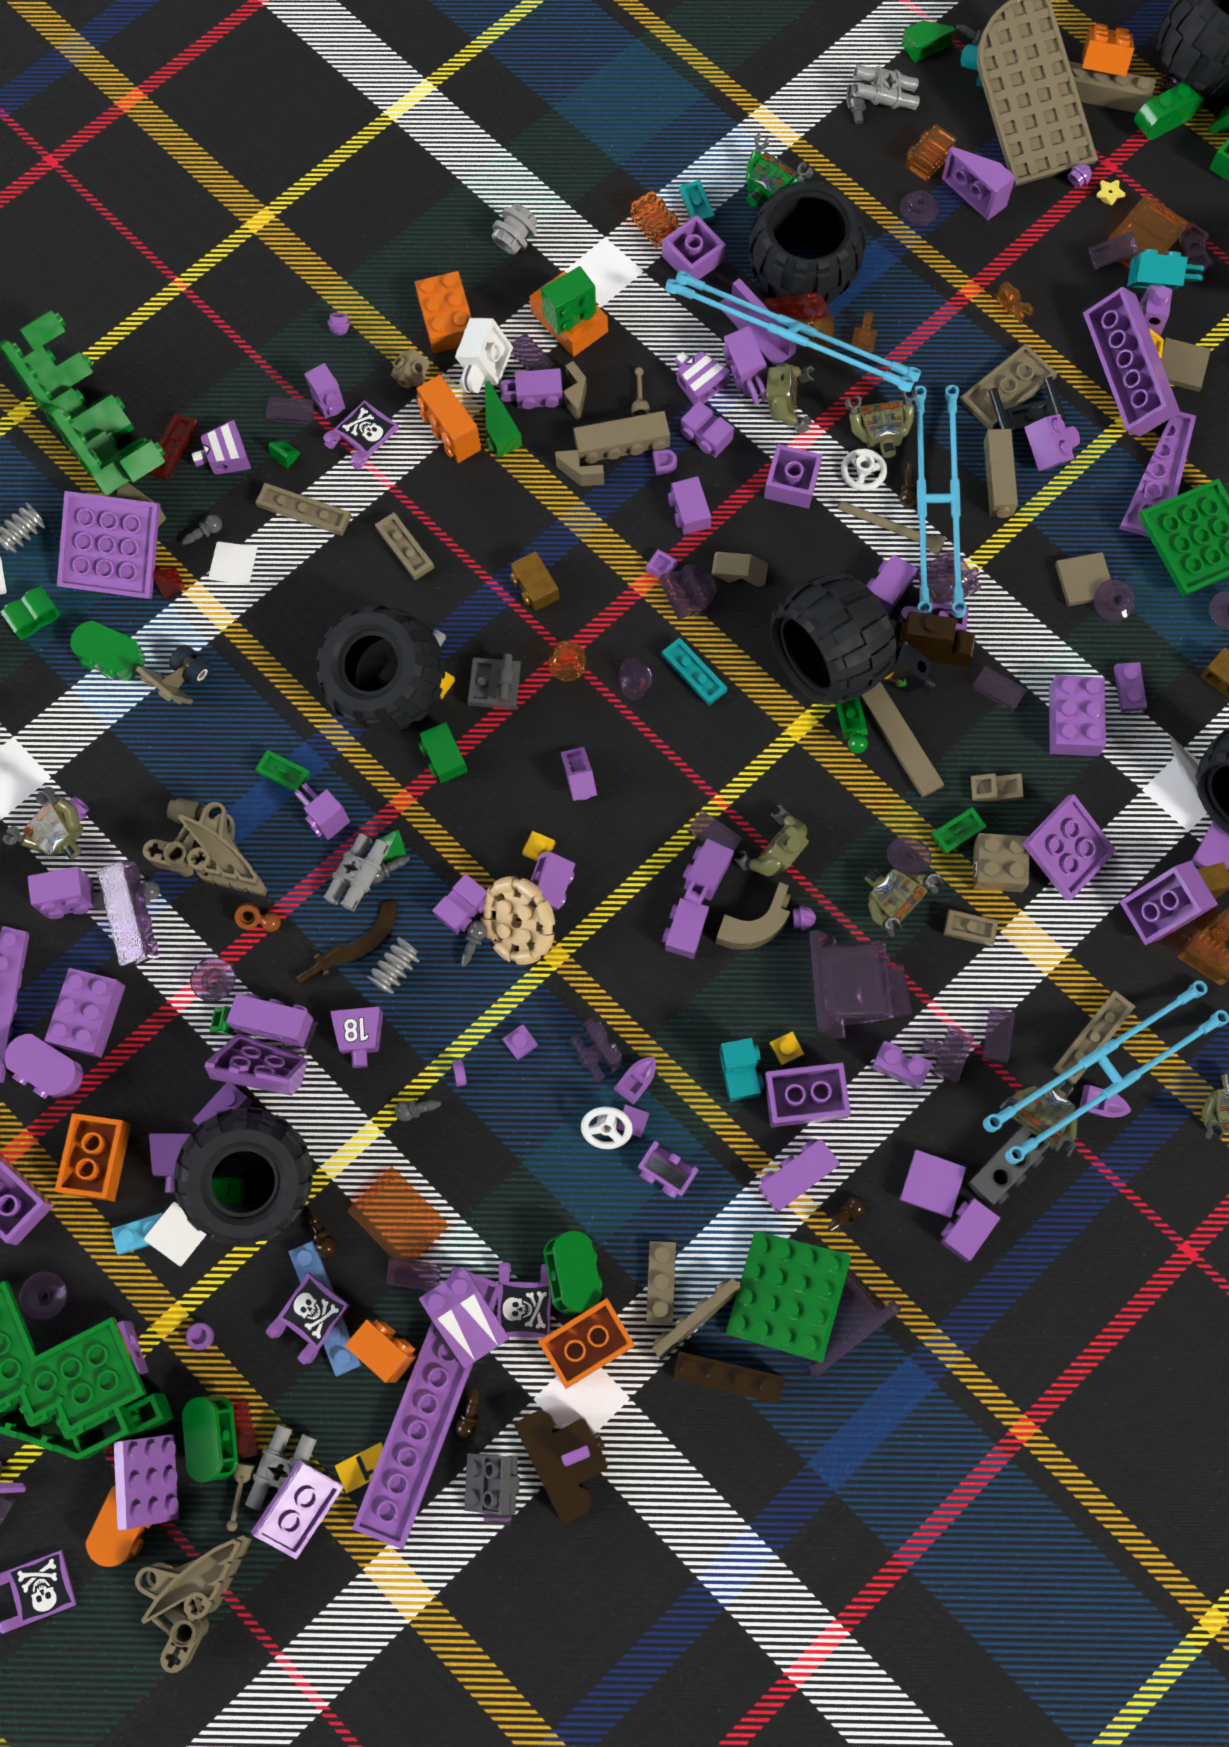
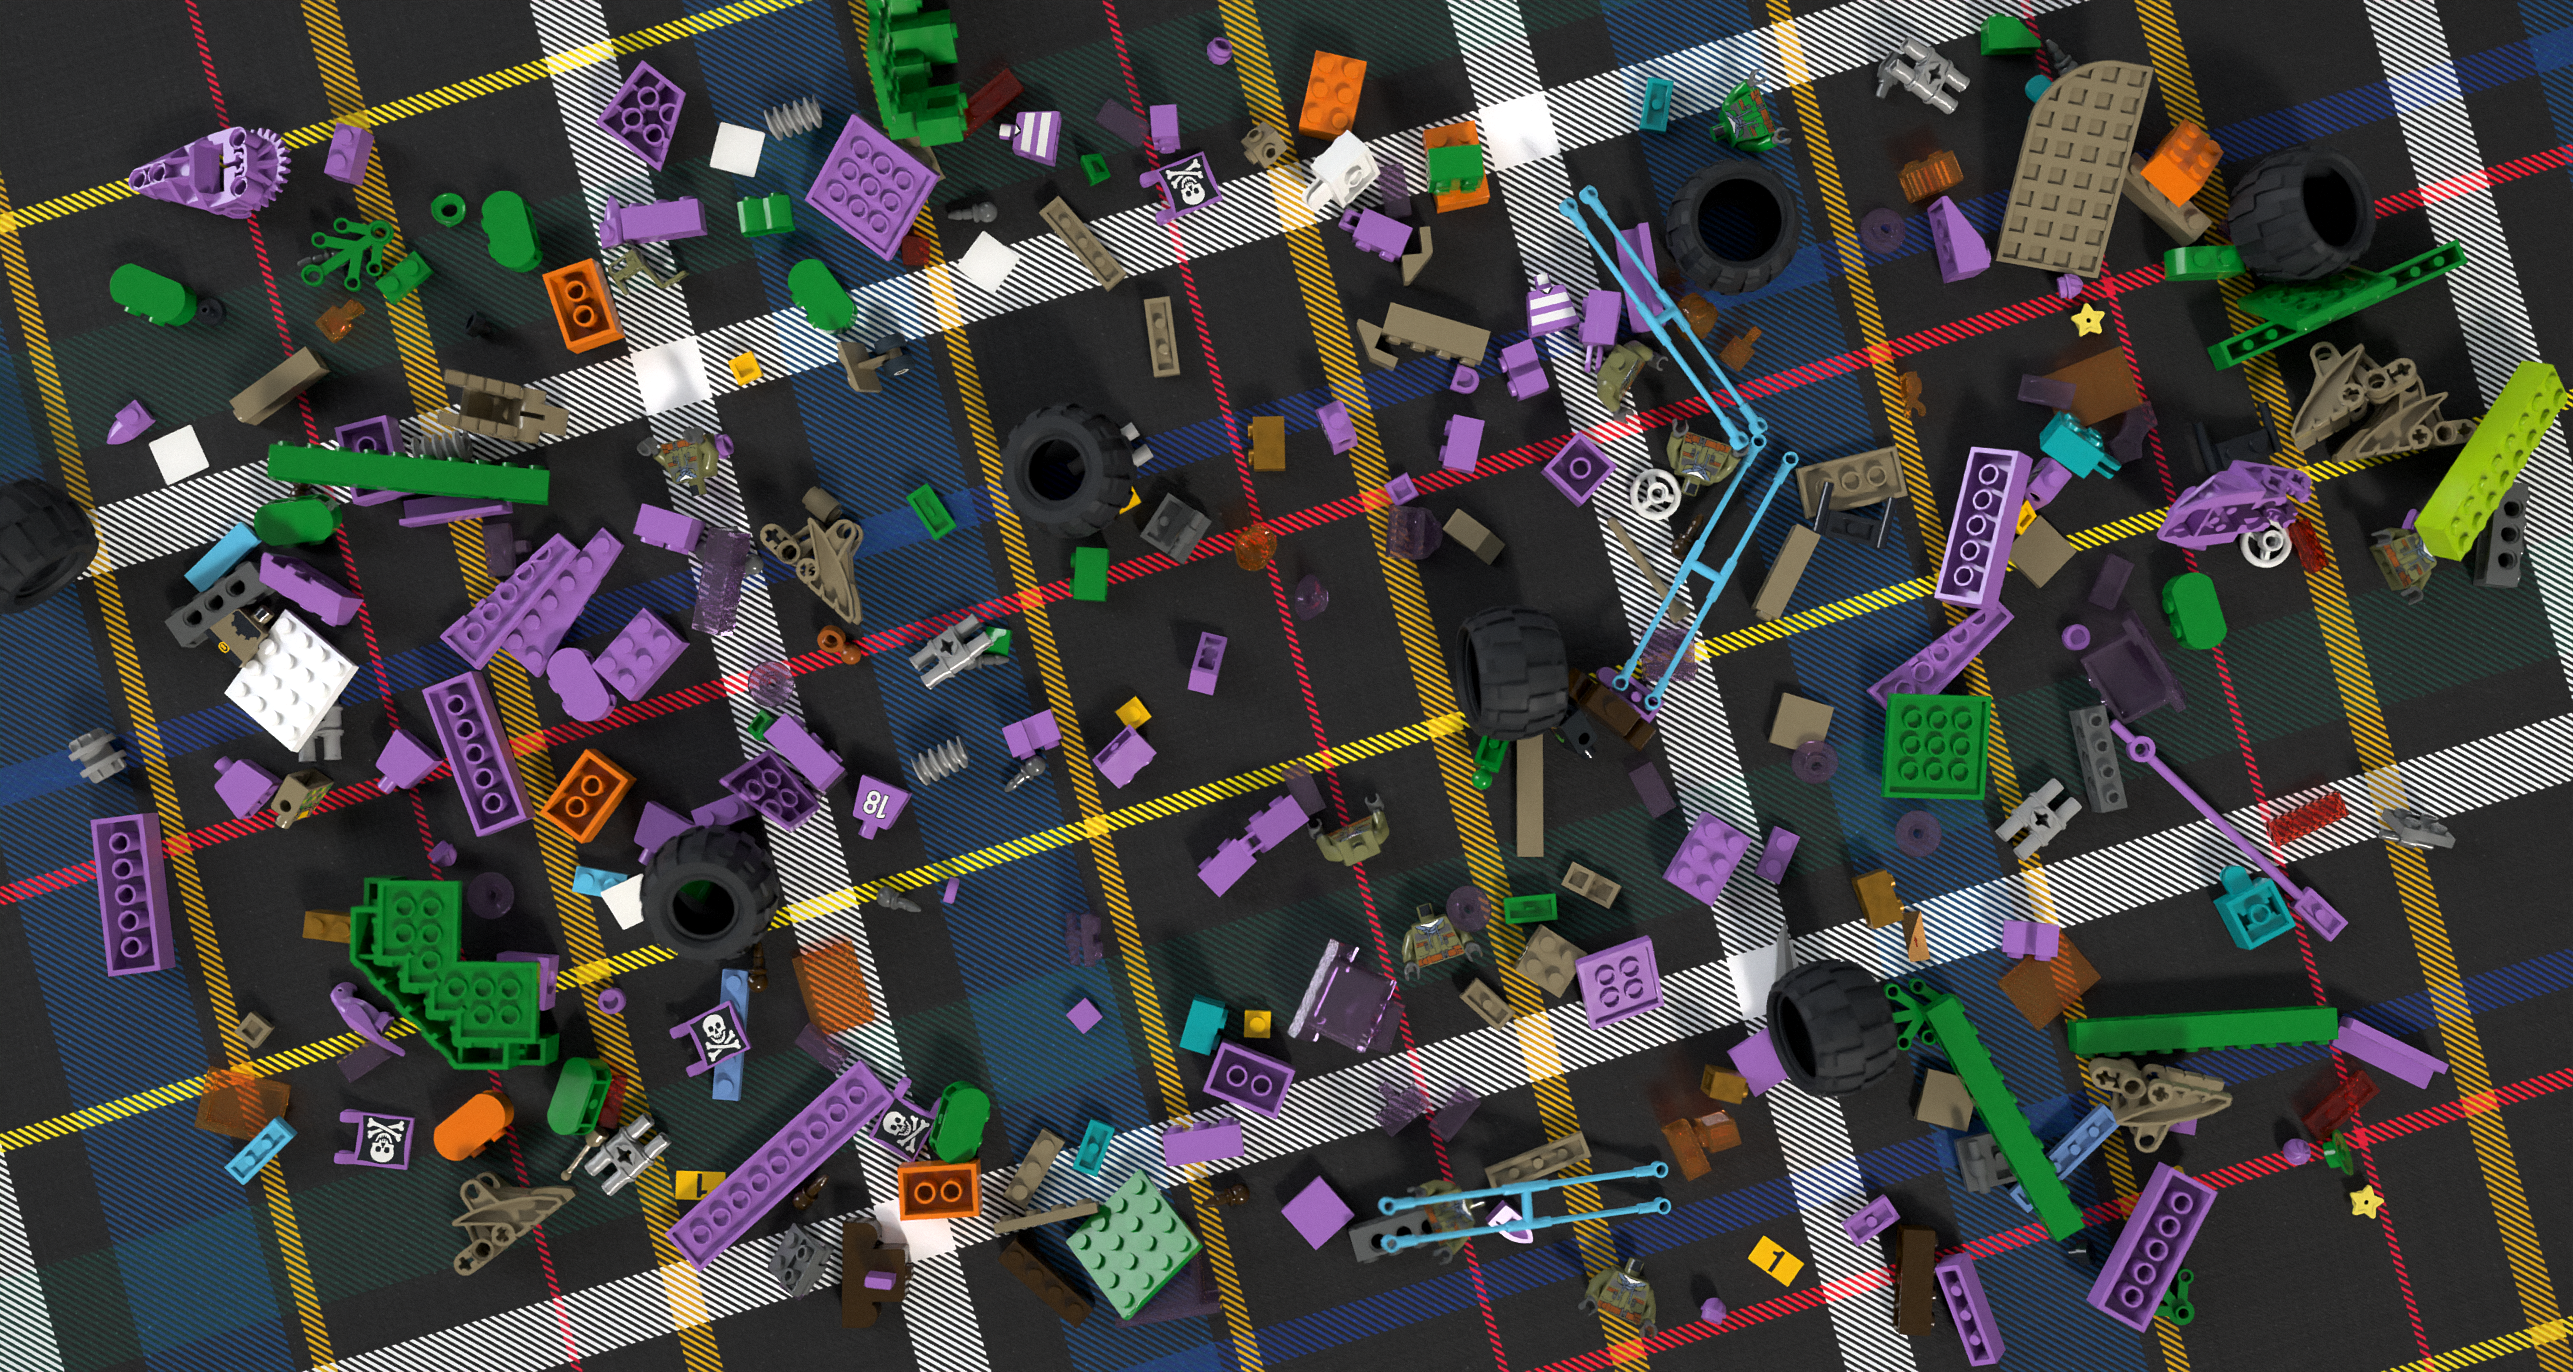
camera: 25 degrees right, 15 degrees up
(68, 737) = (745, 368): none -> yellow plate
(145, 1481) = (507, 1108): medium lavender plate -> none
(297, 1509) = (626, 1193): tile -> none
(324, 812) = (946, 580): medium lavender brick -> none
(355, 949) = (917, 721): dark brown sword -> none
(381, 1350) = (759, 1106): orange brick -> none
(448, 419) = (1271, 225): orange brick -> none
(464, 1318) = (845, 1111): medium lavender slope -> none
(500, 429) = (1320, 255): green slope -> none
(506, 924) = (1074, 779): tan plate -> none
(512, 231) = (1451, 38): light grey piece -> none
(520, 1042) = (1021, 889): medium lavender plate -> none
(579, 536) = (1337, 426): none -> medium lavender torso
(606, 1125) = (1057, 1008): white piece -> none
(636, 1079) = (1107, 980): medium lavender plate -> none
(640, 406) = (1472, 308): dark tan hinge -> none
(653, 217) = (1602, 101): clear orange brick -> none
(666, 1170) = (1090, 1076): medium lavender window -> none
(693, 248) = (1620, 162): medium lavender brick -> none
(694, 671) = (1371, 618): teal plate -> none
(704, 1233) = (1093, 1147): none -> teal plate
(753, 934) = (1289, 905): dark tan arch -> none
(799, 306) = (1683, 290): clear red plate -> none
(803, 918) = (1339, 913): medium lavender plate -> none
(892, 581) = (1610, 630): medium lavender brick -> none
(906, 1070) = (1341, 1087): medium lavender brick -> none
(969, 1229) = (1325, 1269): medium lavender brick -> none
(1052, 441) = (1852, 570): medium lavender brick -> none
(1168, 902) = (1674, 1086): medium lavender brick -> none

